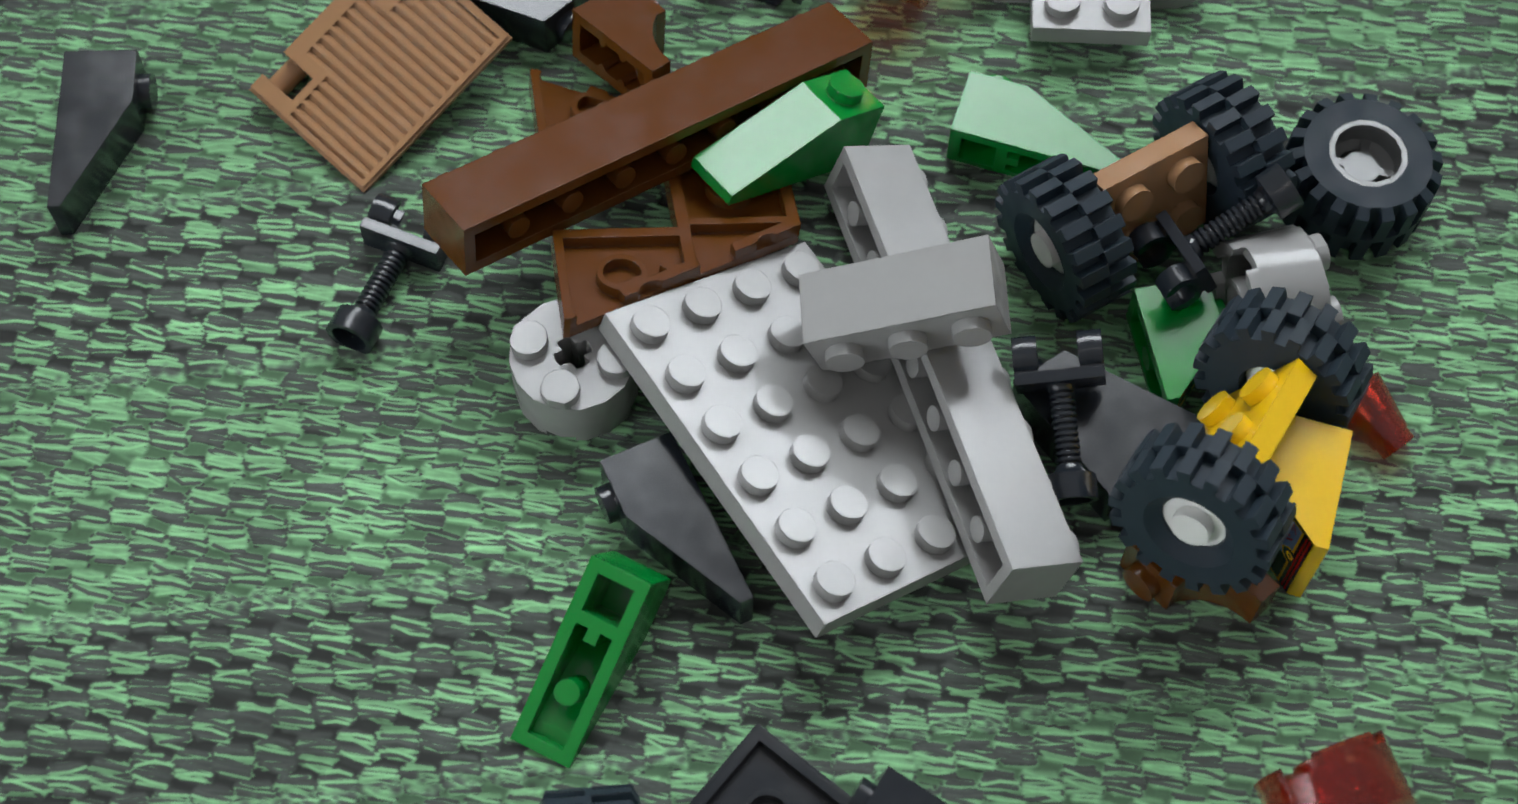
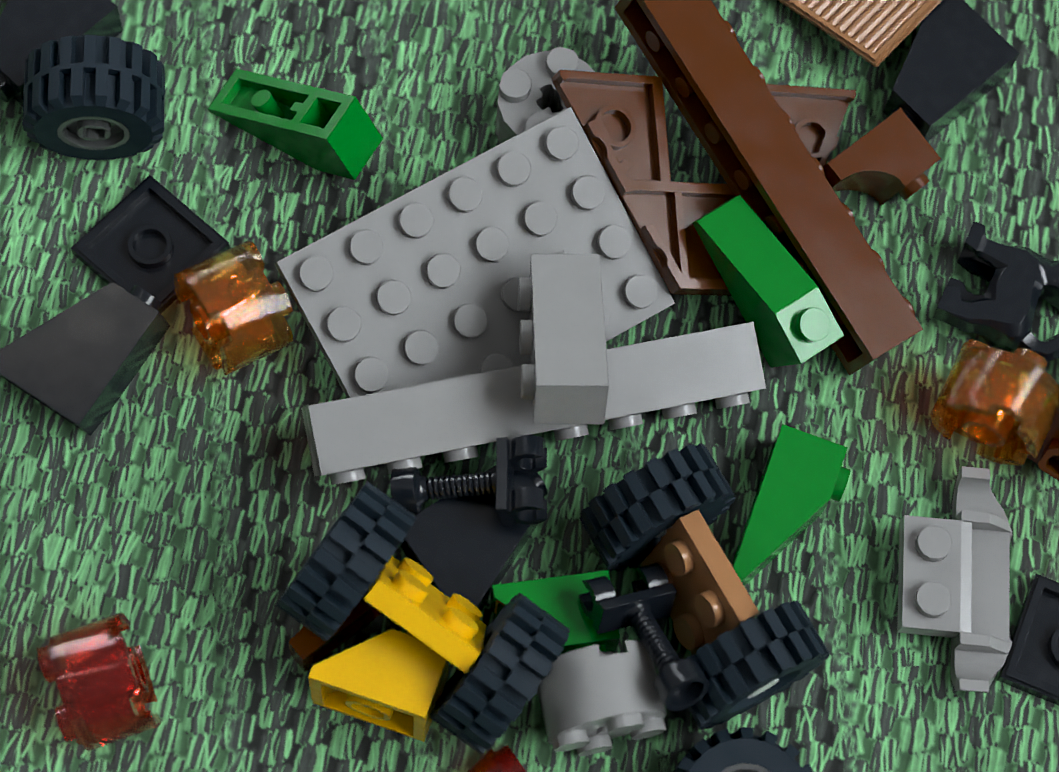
camera: 85 degrees right, 5 degrees up
(670, 520) = (408, 165): black slope -> none
(861, 692) = (235, 307): none -> clear orange brick

